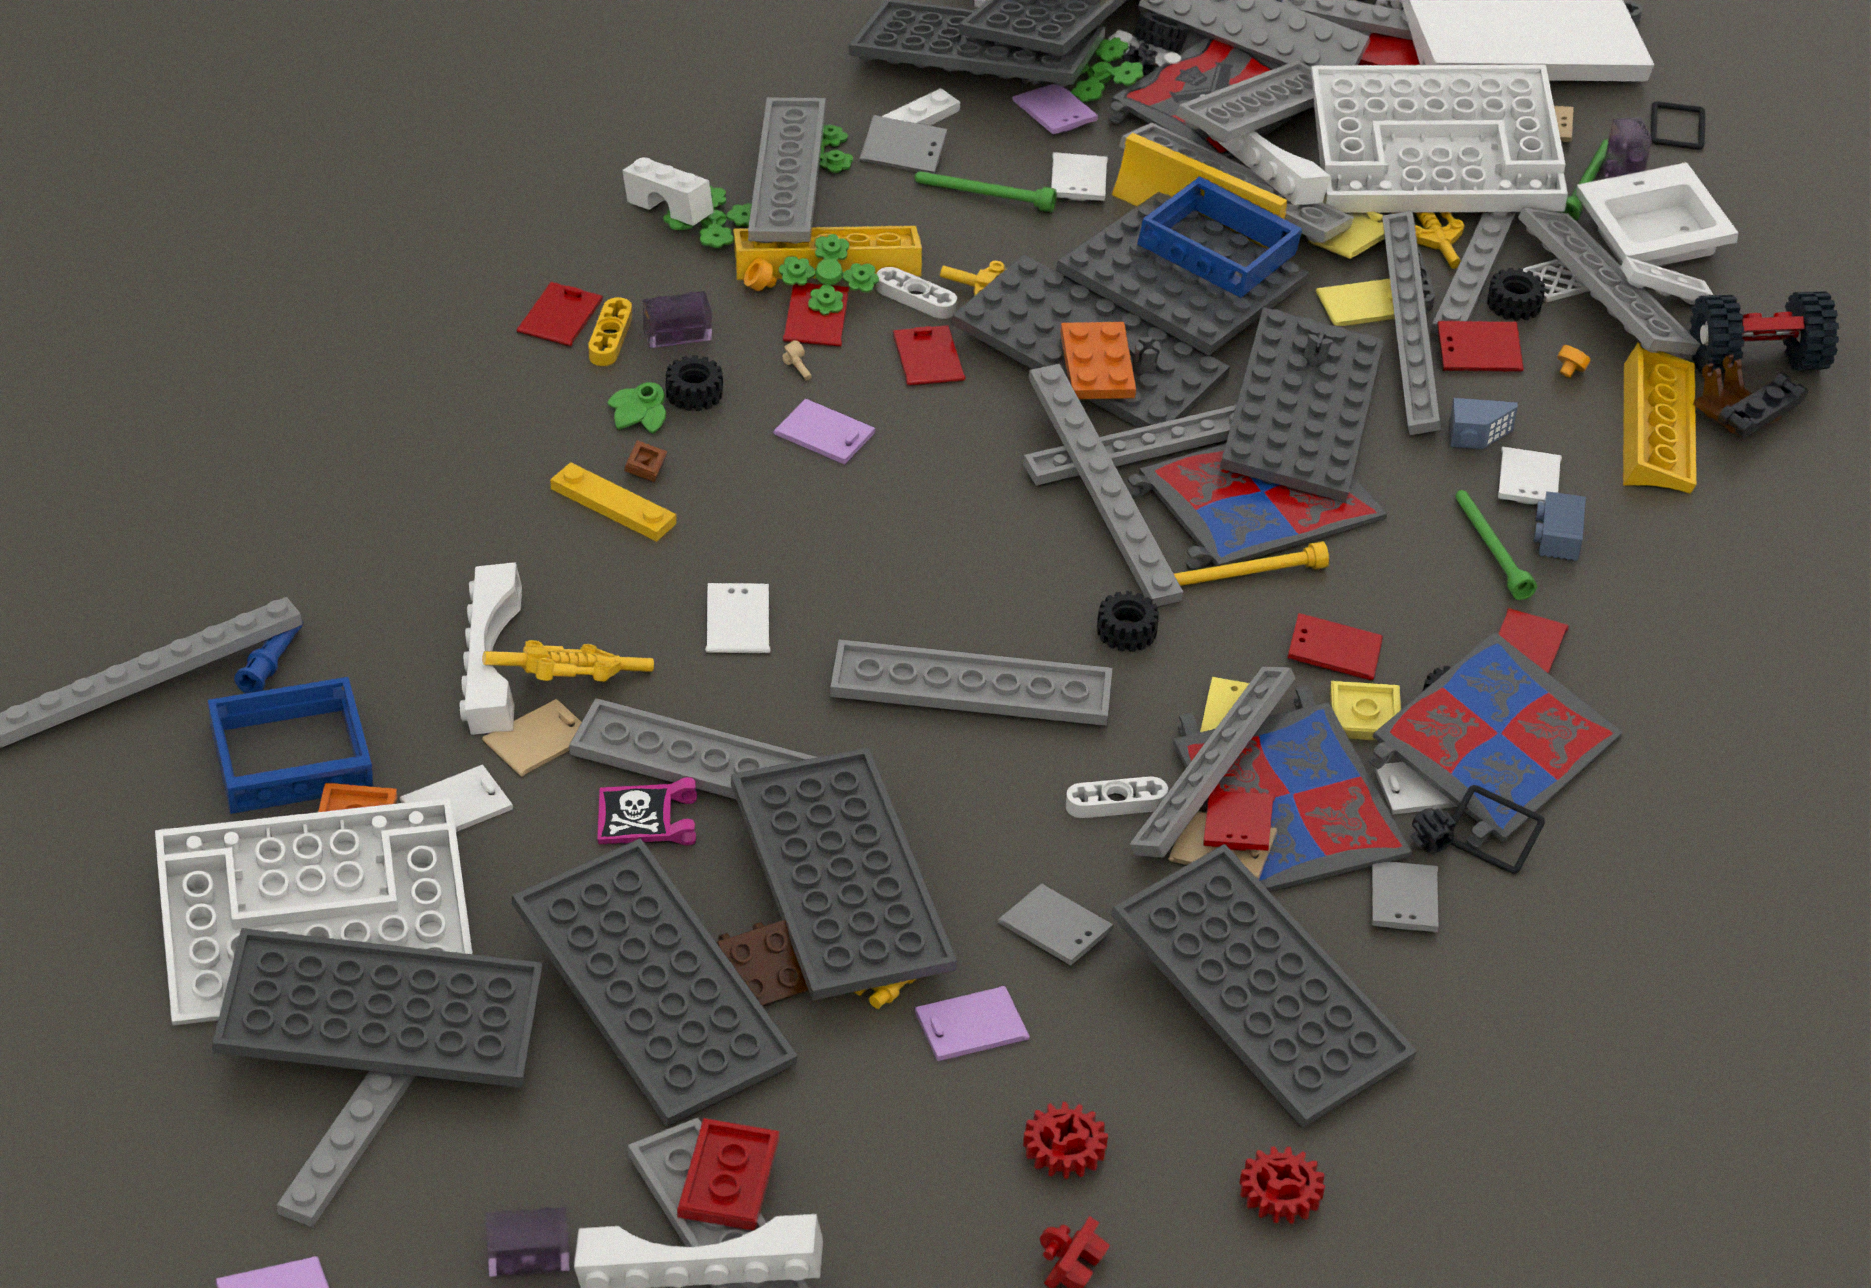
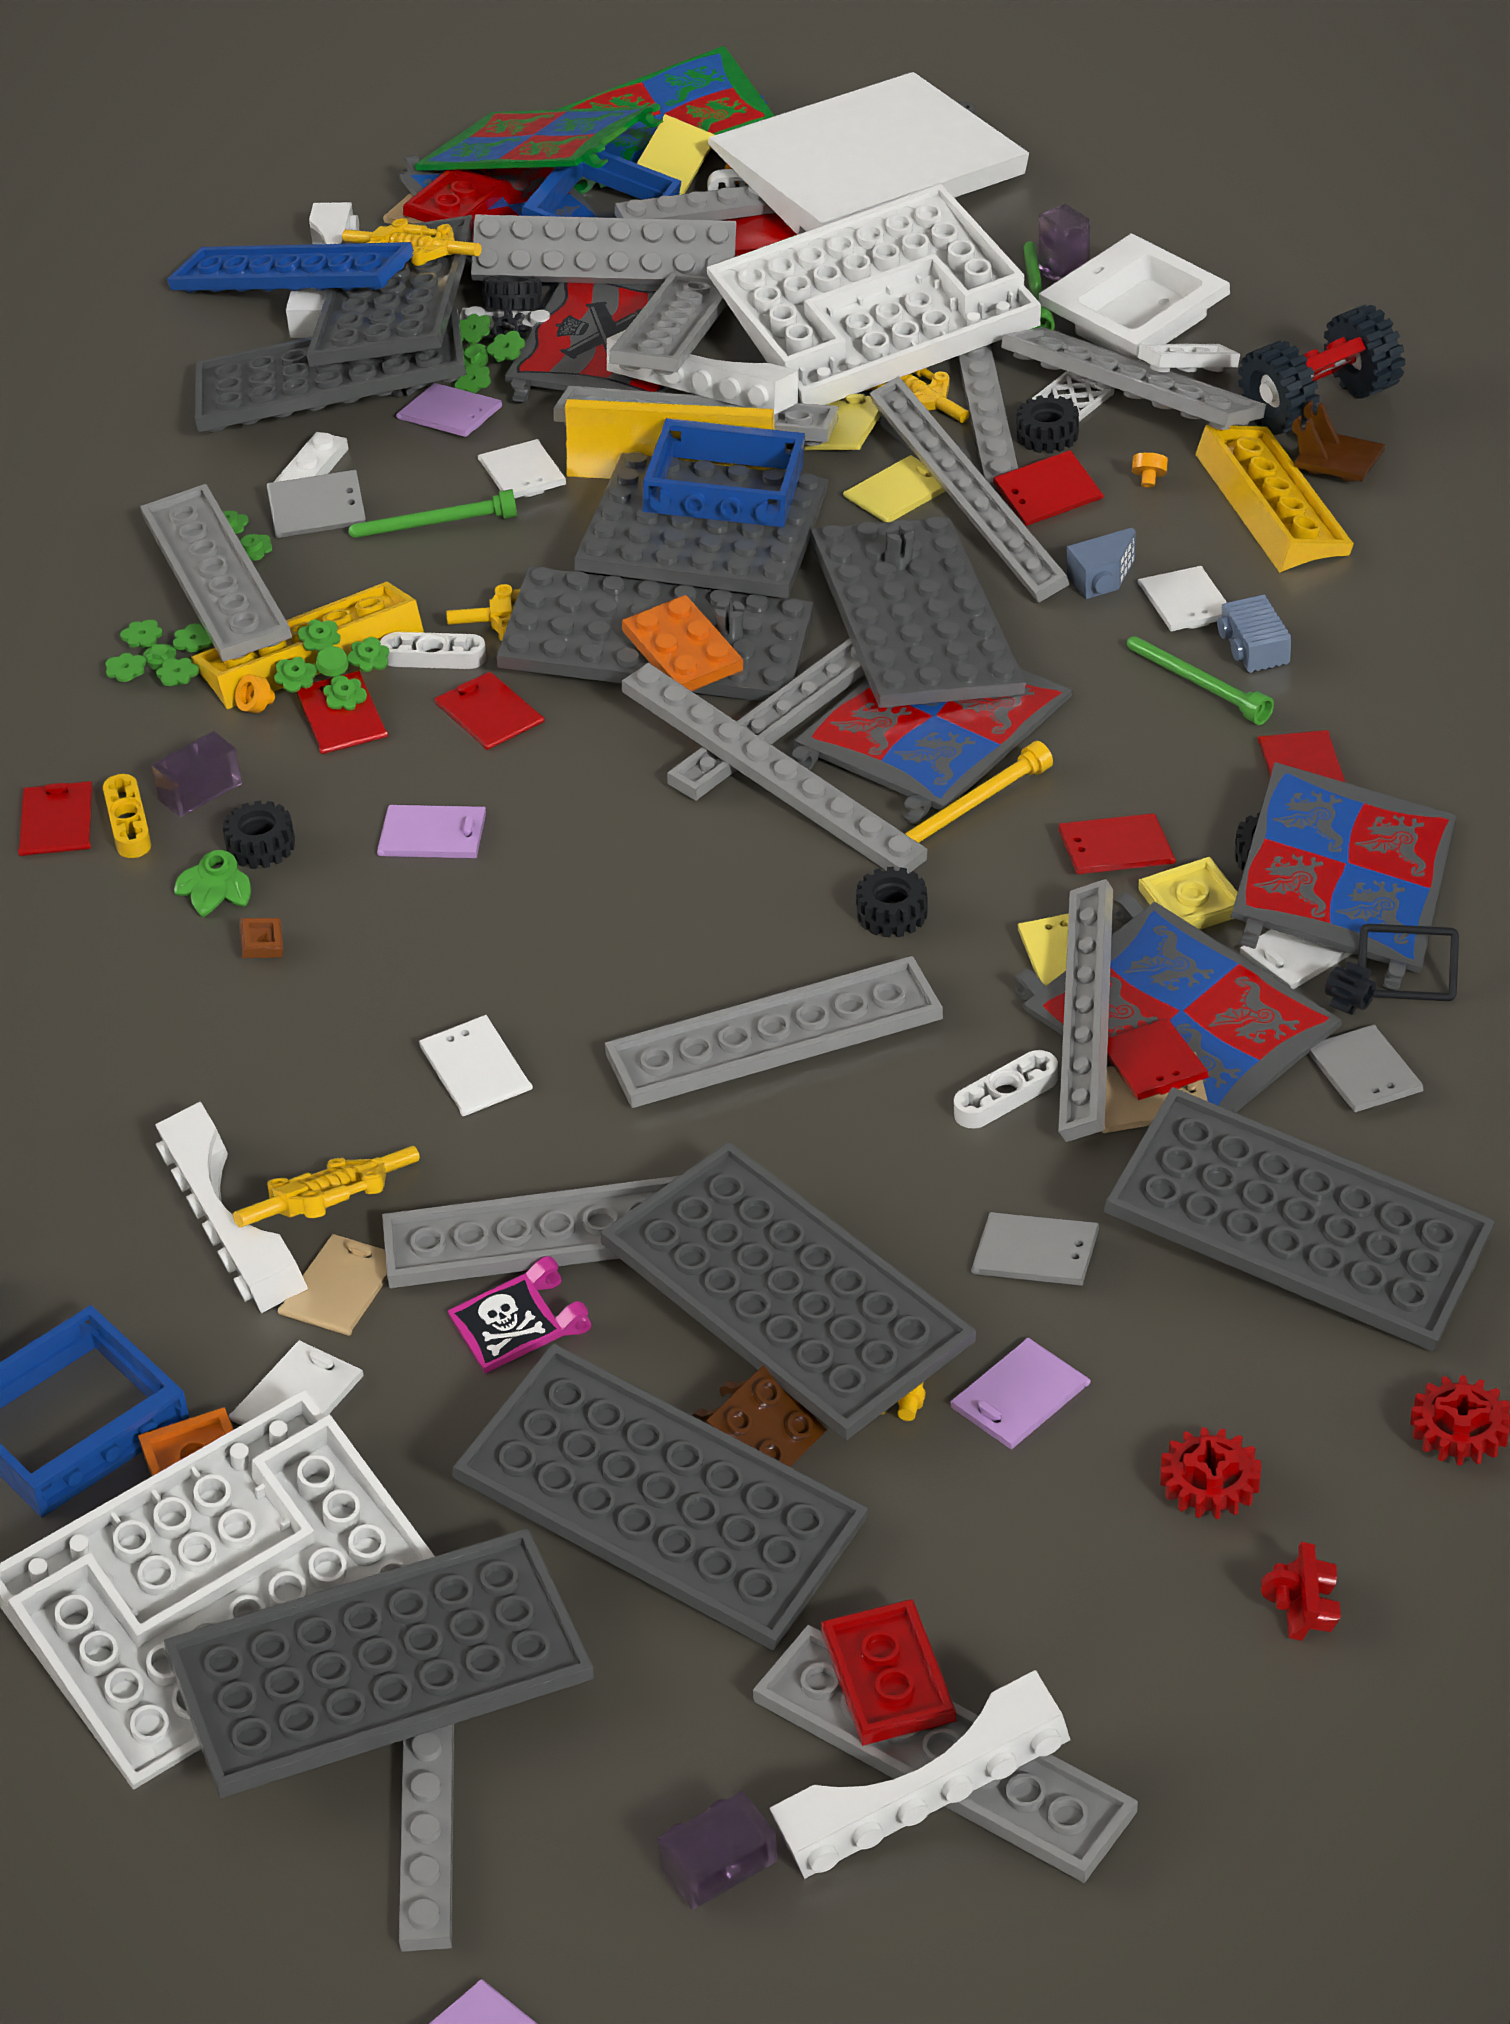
camera: 20 degrees left, 0 degrees up
(613, 501) = (252, 995): yellow plate -> none
(651, 183) = (72, 639): white arch -> none
(793, 355) = (345, 765): tan hand -> none
(1656, 104) = (1118, 216): black piece -> none
(1763, 405) = (1365, 441): black plate -> none

